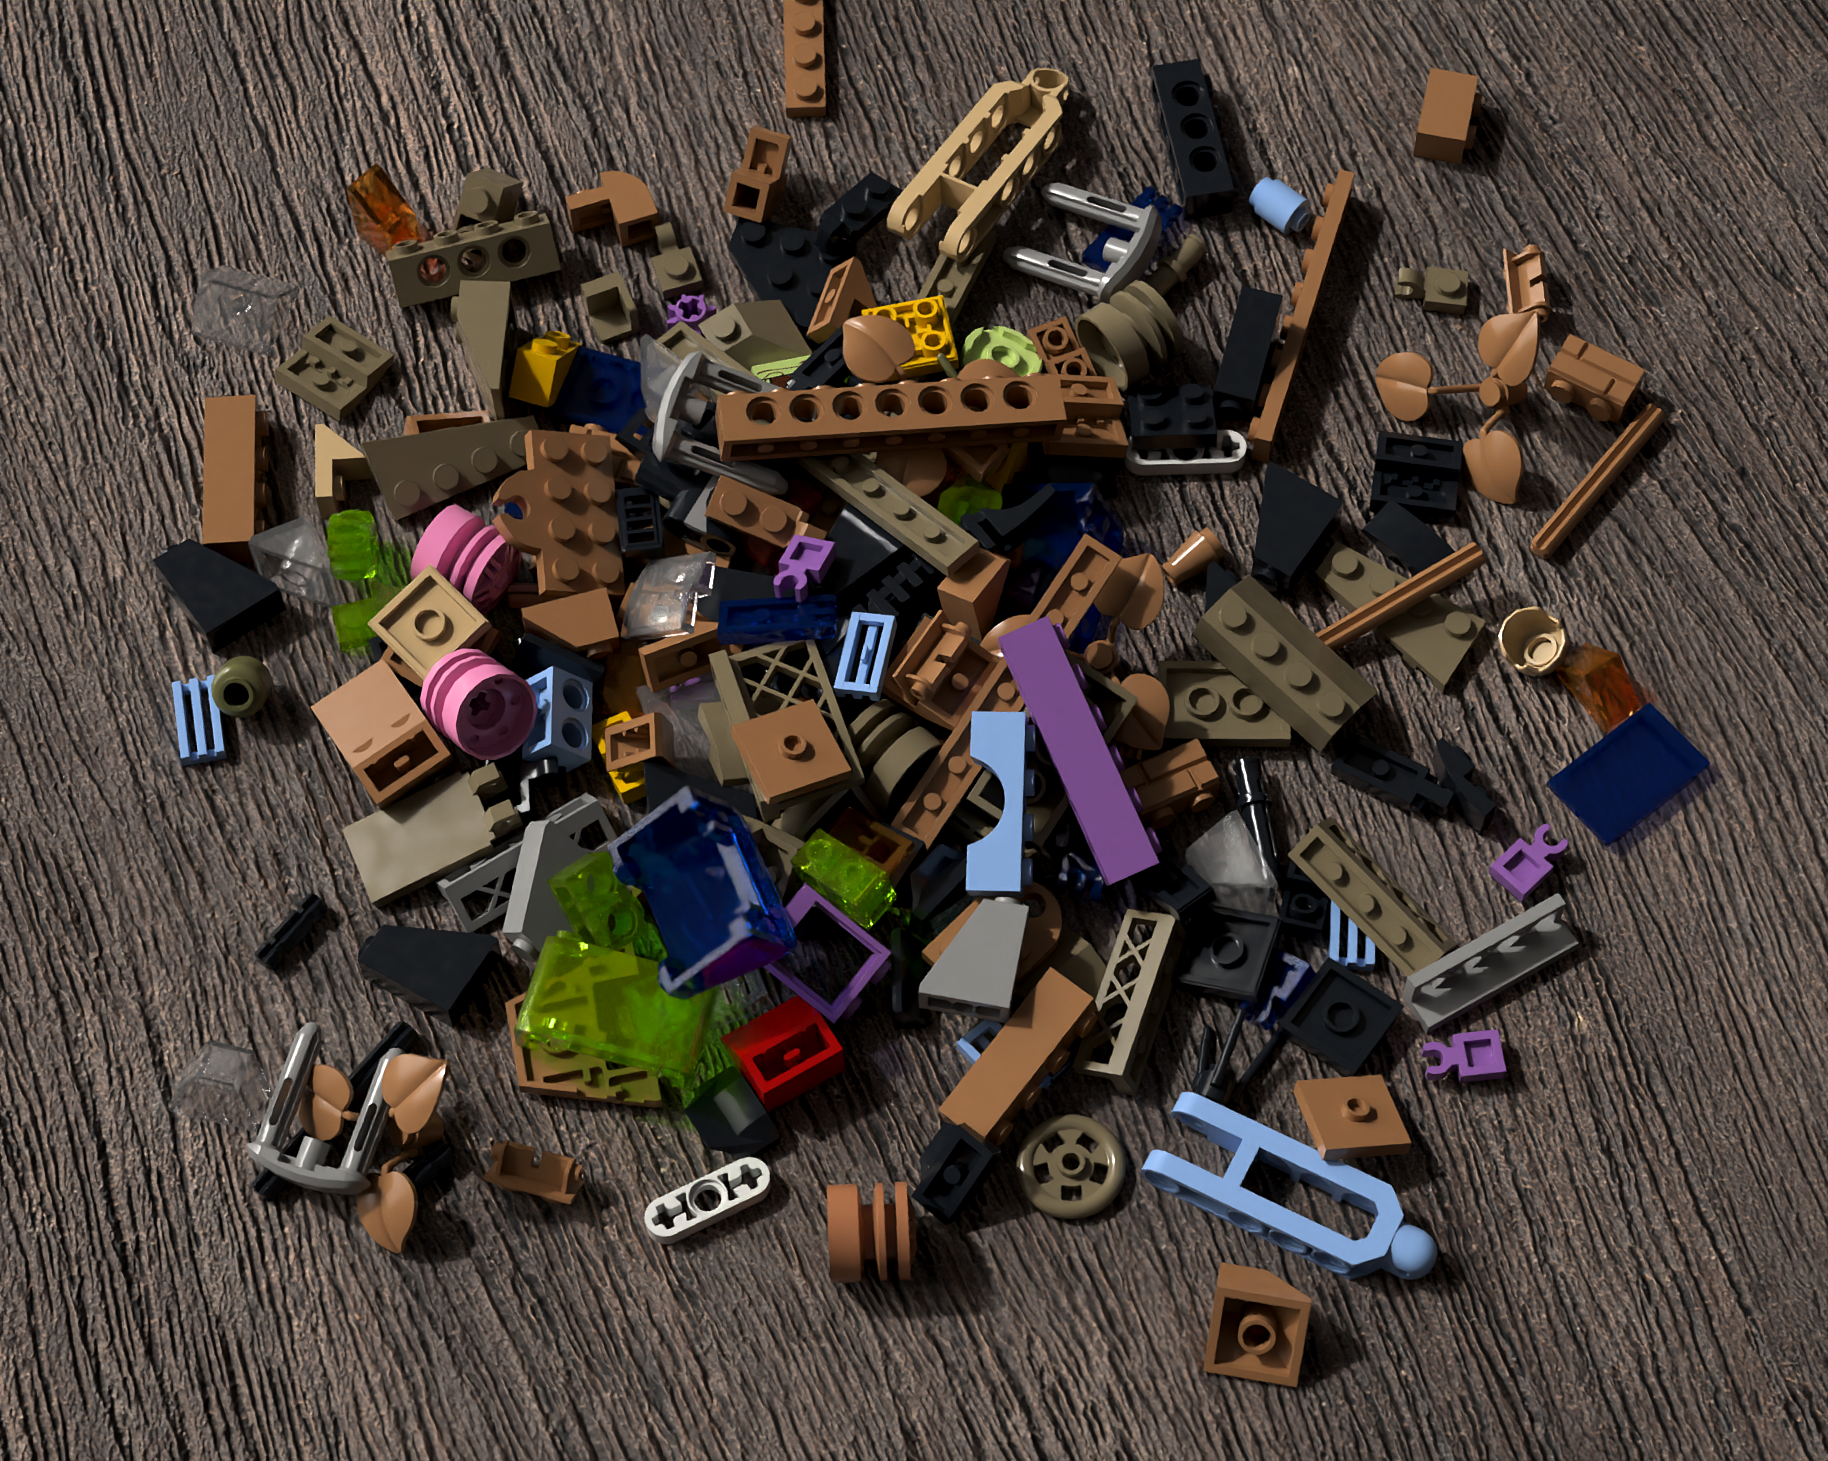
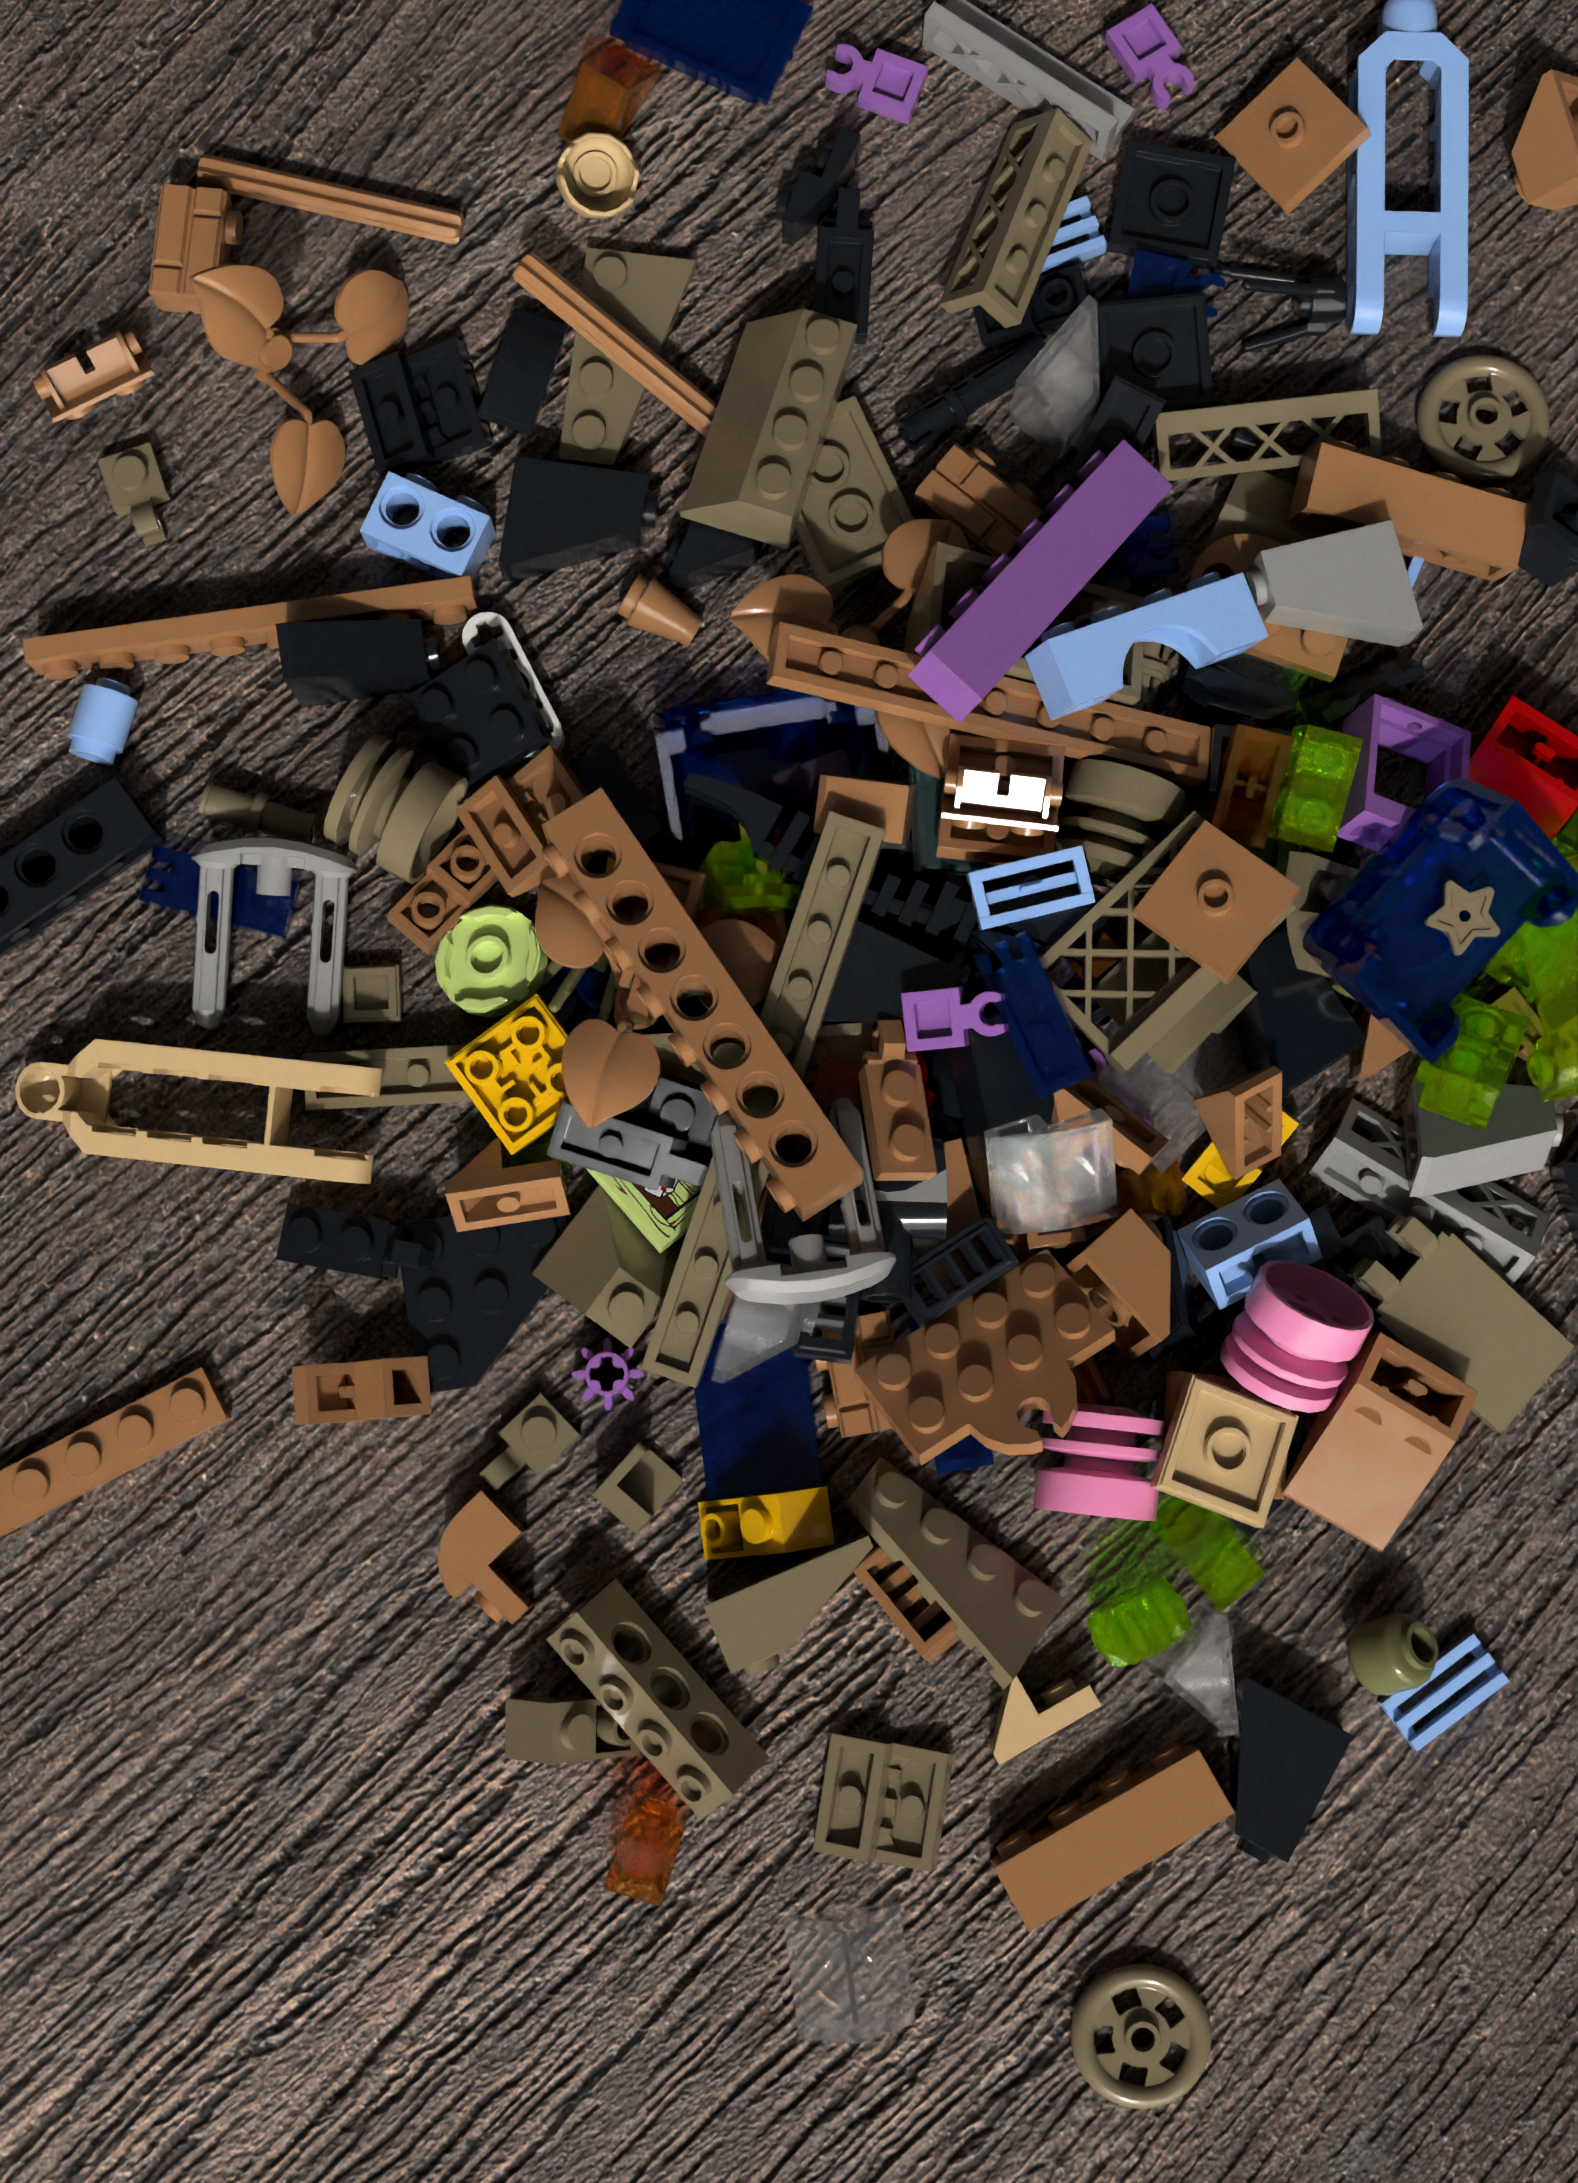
camera: 115 degrees left, 20 degrees up
(96, 420) = (1190, 2031): none -> dark tan plate
(706, 924) = (1447, 915): none -> dark tan plate
(1017, 292) = (372, 994): none -> dark tan tile
(1314, 435) = (421, 541): none -> light blue brick

